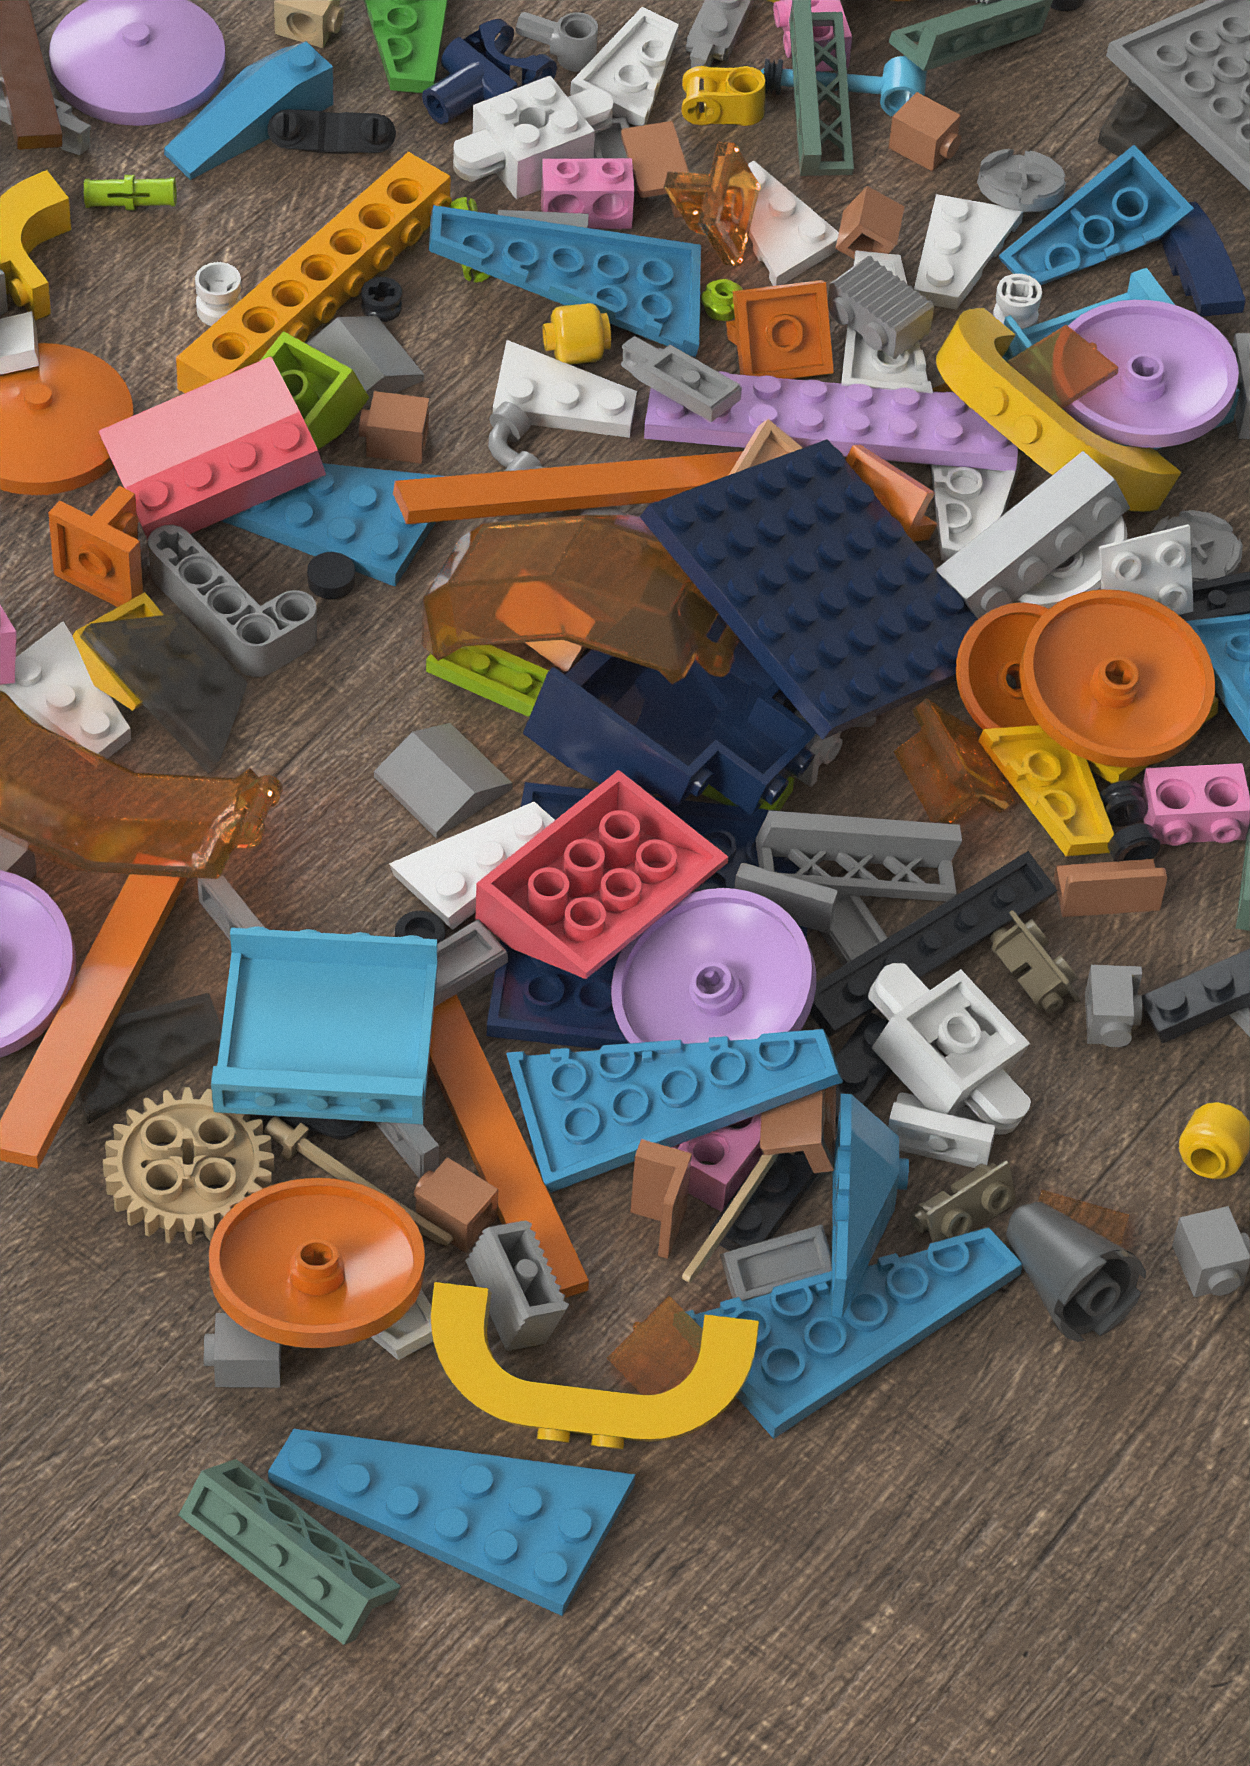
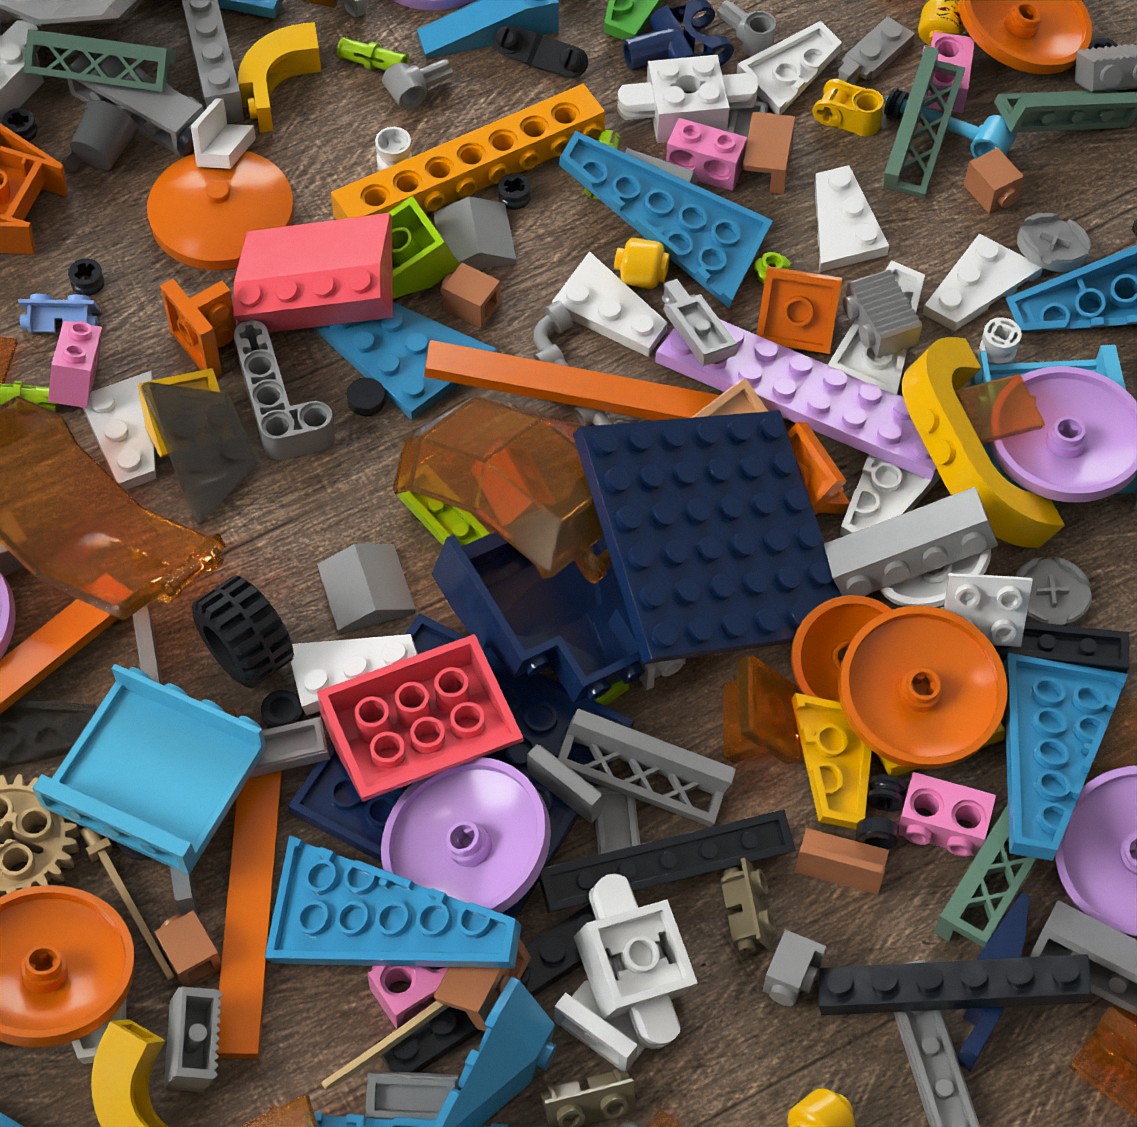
camera: 25 degrees right, 5 degrees up
(195, 211) = (410, 84): none -> light grey axle
(345, 857) = (242, 631): none -> black tyre
(661, 1189) = (348, 1003): nougat panel -> none
(718, 202) = (797, 192): clear orange bracket -> none
(870, 224) = (912, 243): nougat brick -> none

